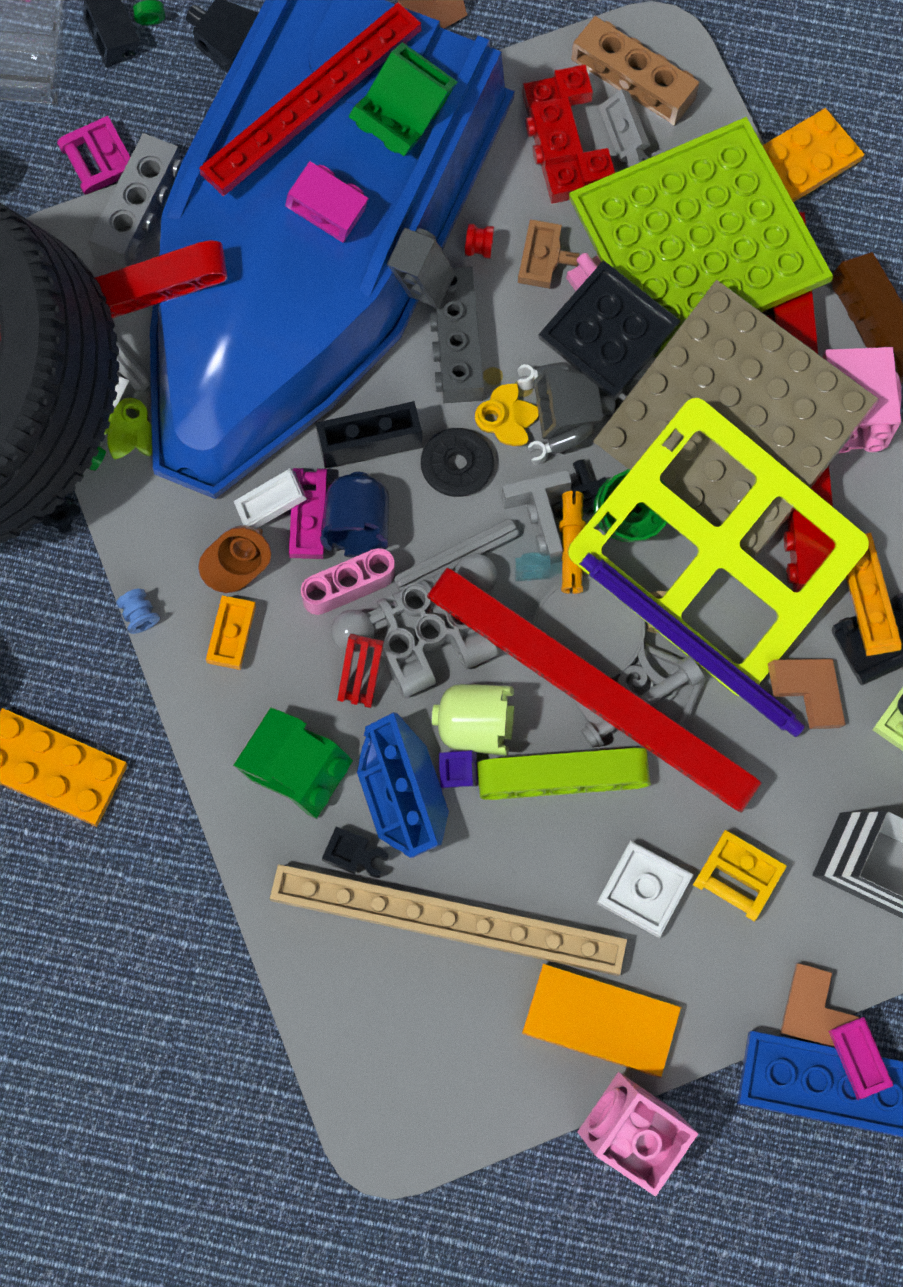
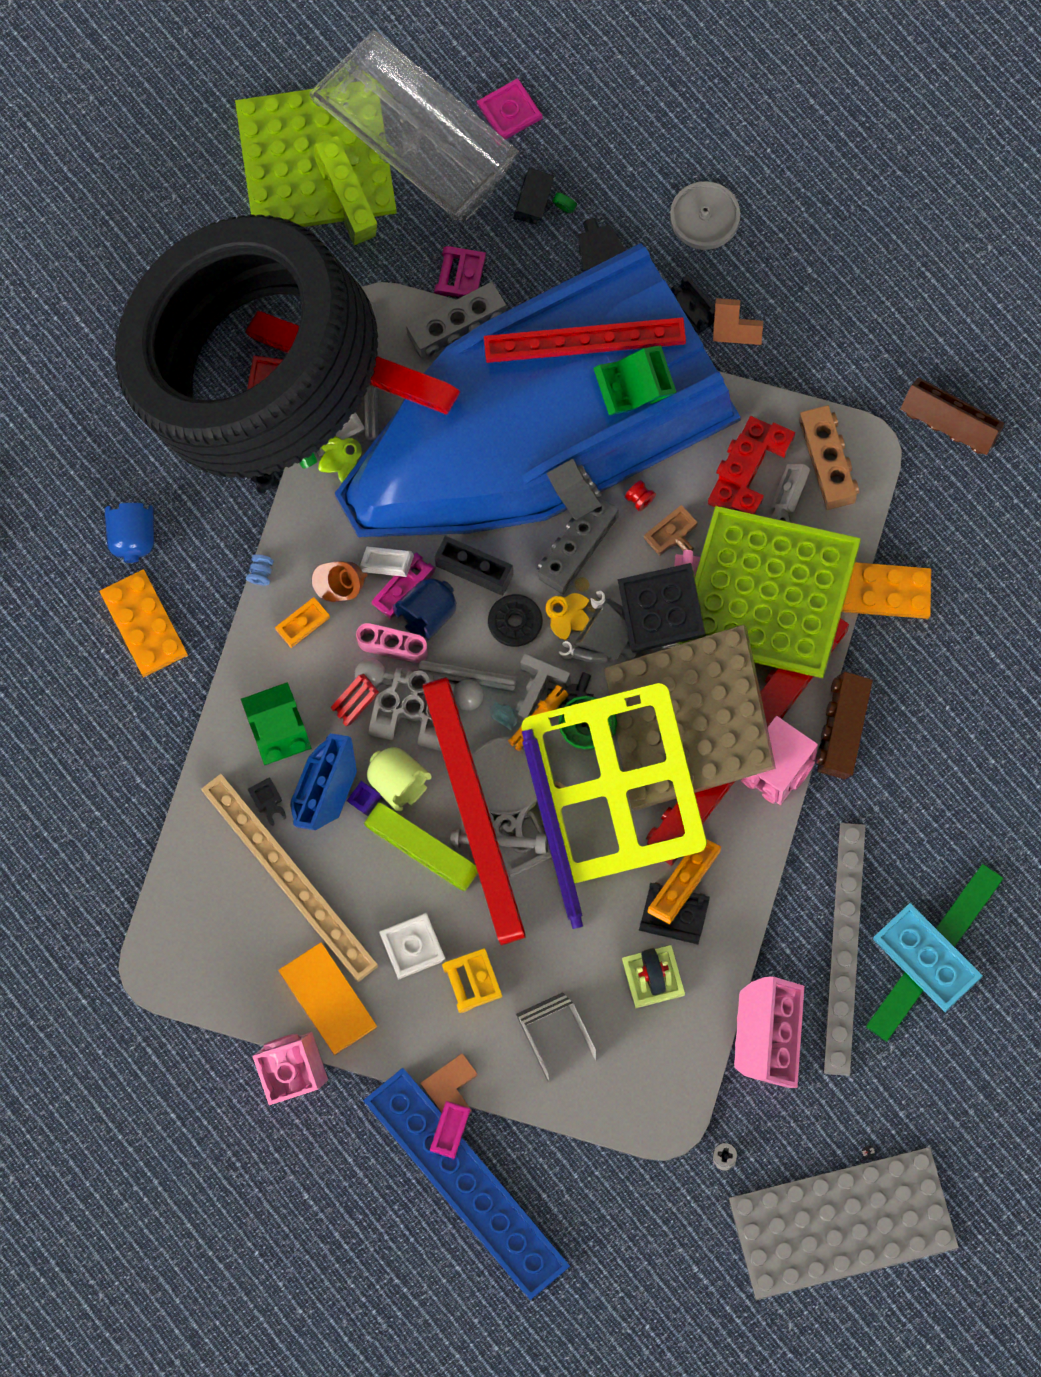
camera: 45 degrees right, 0 degrees up
(326, 201) = (541, 409): dark pink brick -> none
(816, 683) = (611, 908): nougat tile -> none

